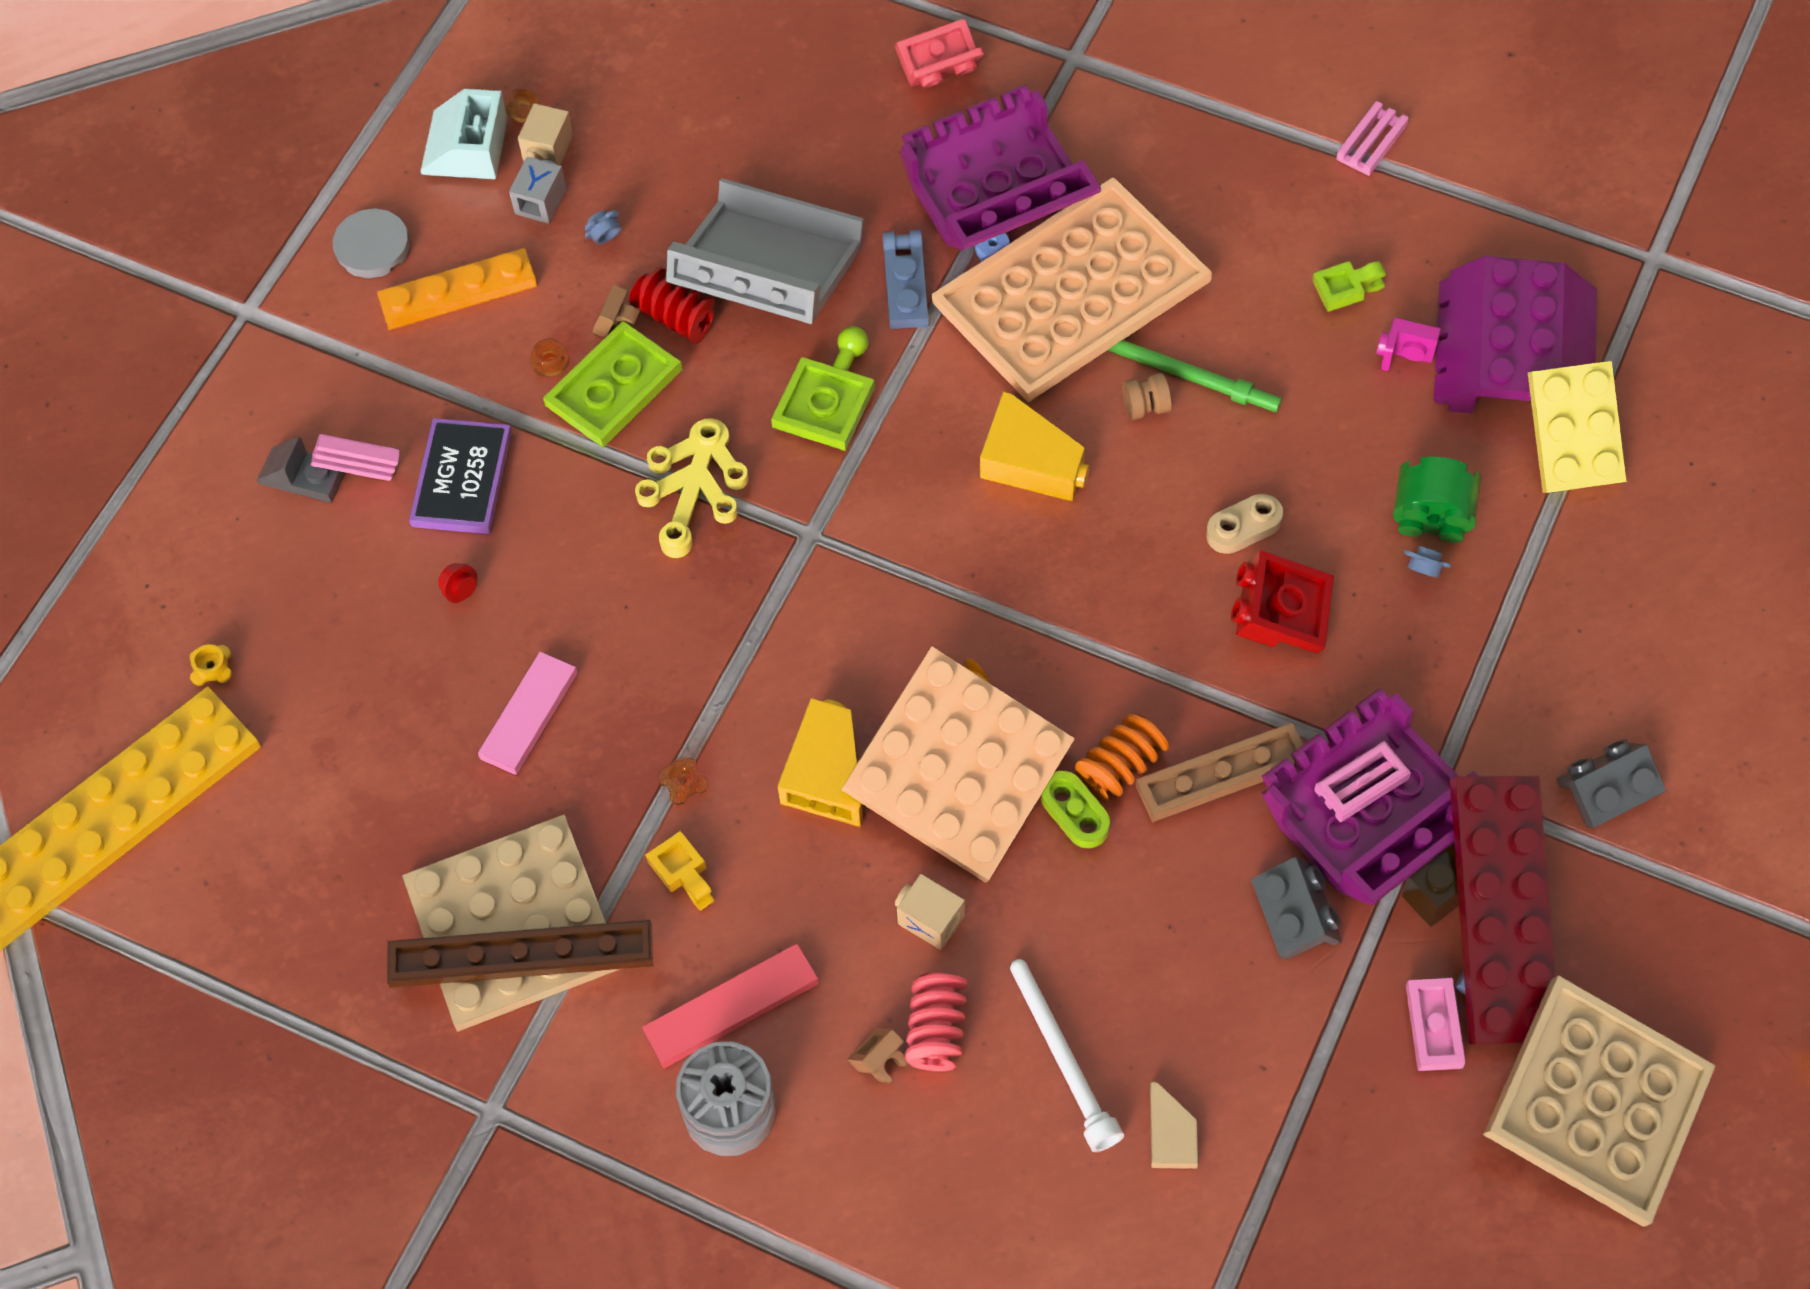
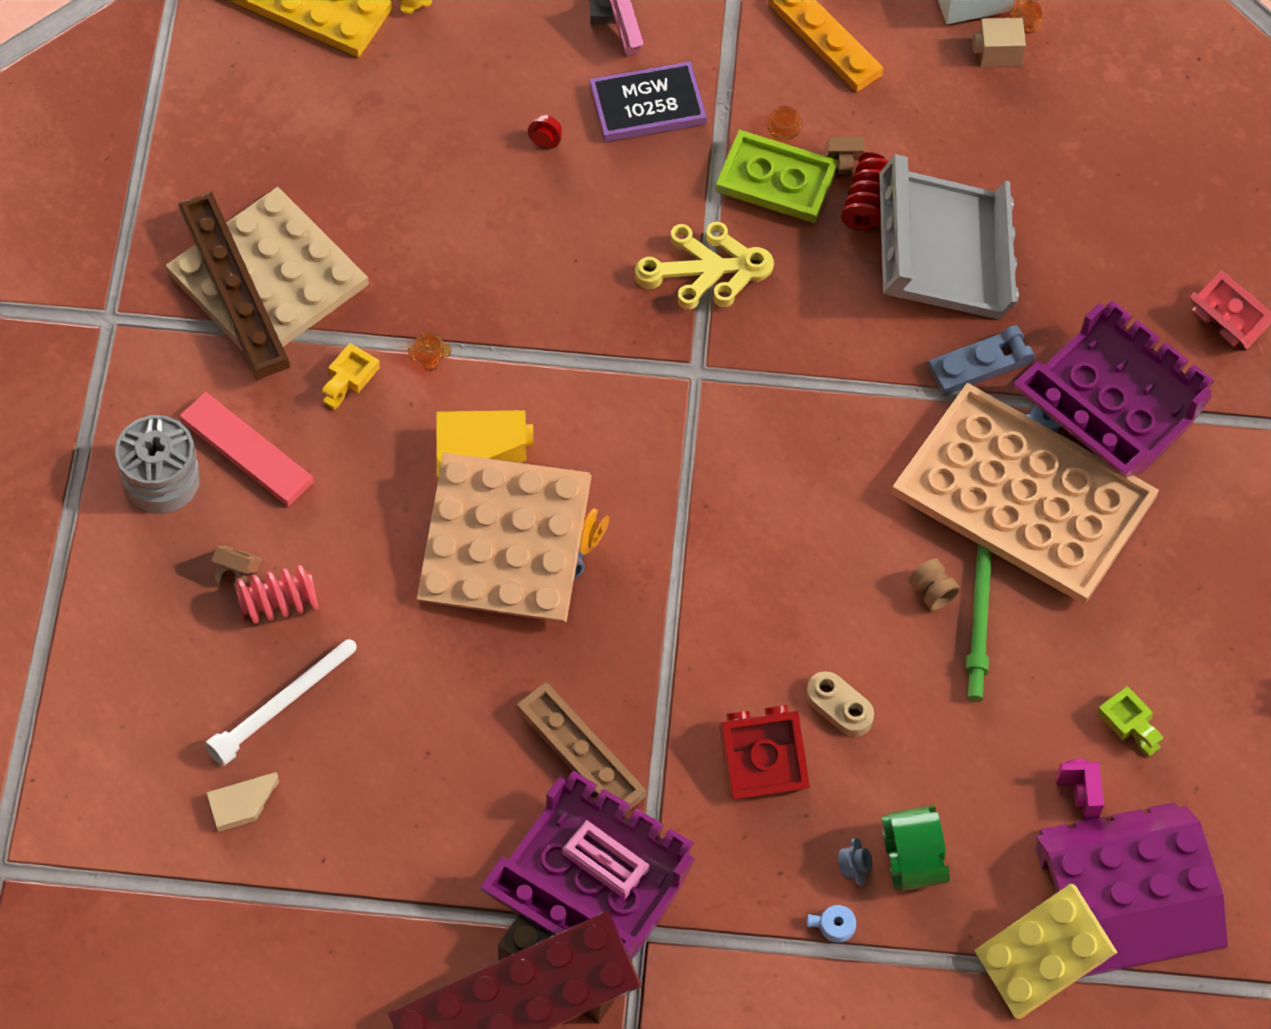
camera: 65 degrees right, 0 degrees up
(527, 713) = (450, 223): bright pink tile -> none
(538, 189) = (945, 55): light grey brick -> none
(603, 226) = (928, 115): sand blue plate -> none
(827, 400) = (829, 337): lime plate -> none
(929, 911) = (371, 562): tan brick -> none
(1031, 452) = (837, 507): yellow slope -> none
(1076, 811) = (502, 646): lime plate -> none
(1119, 754) = (564, 666): orange piece -> none
(1296, 907) = (473, 844): dark grey bracket -> none
(1435, 1024) = (400, 981): bright pink plate -> none
(1479, 610) = (826, 922): none -> light blue piece

